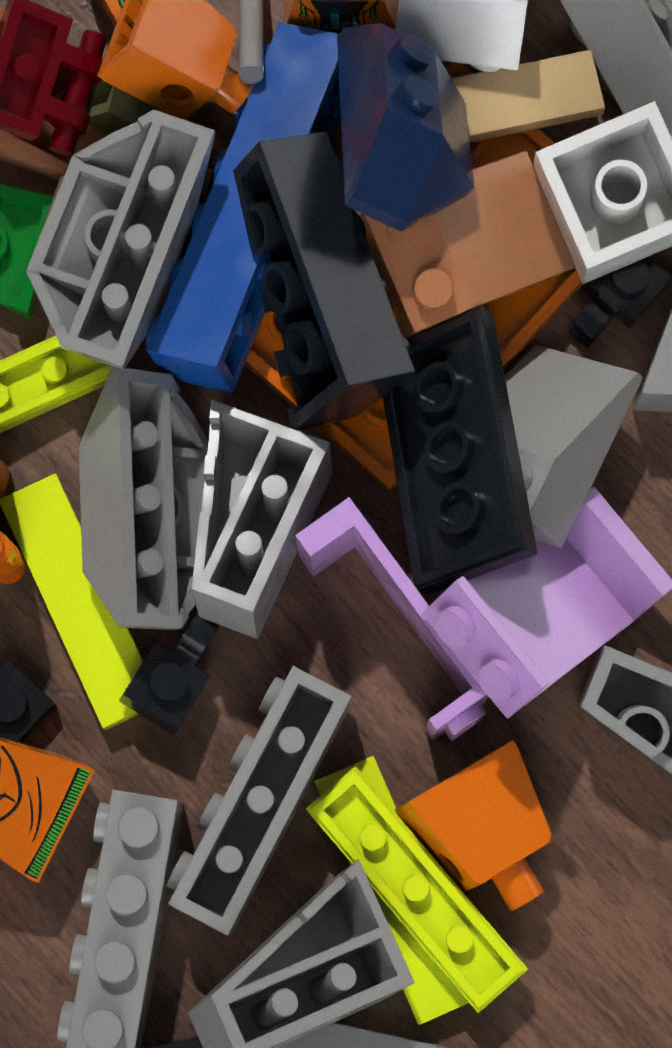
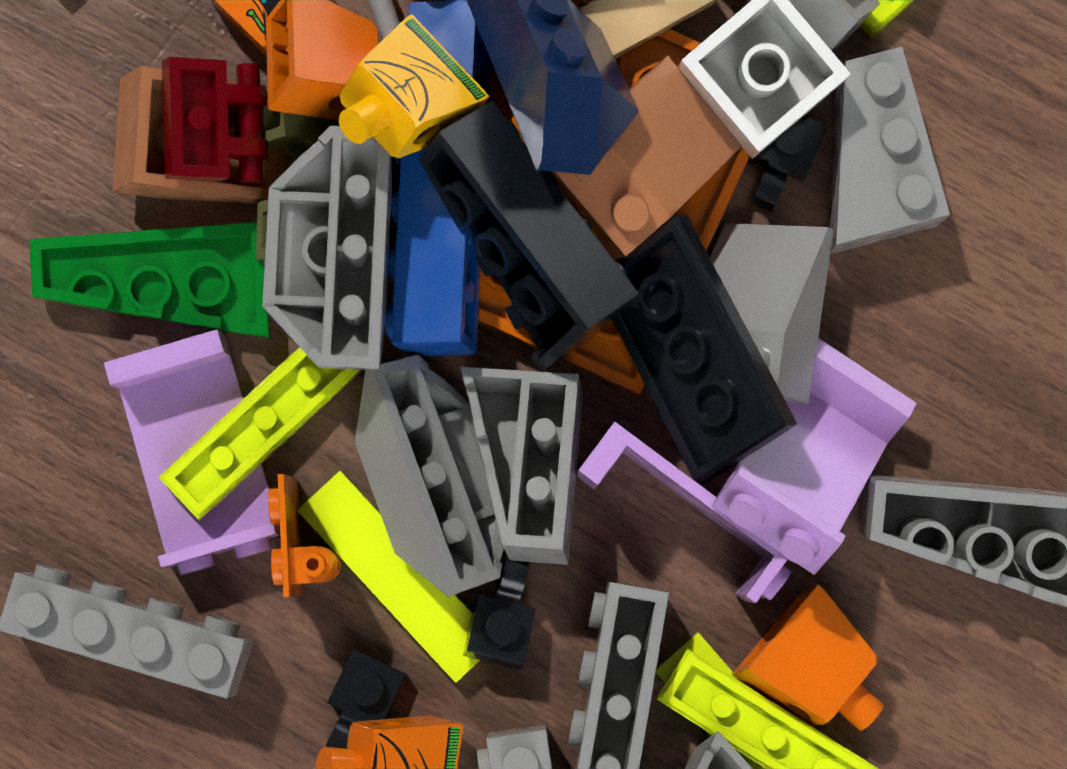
camera: 20 degrees left, 5 degrees up
(240, 95) = (407, 92): none -> yellow torso

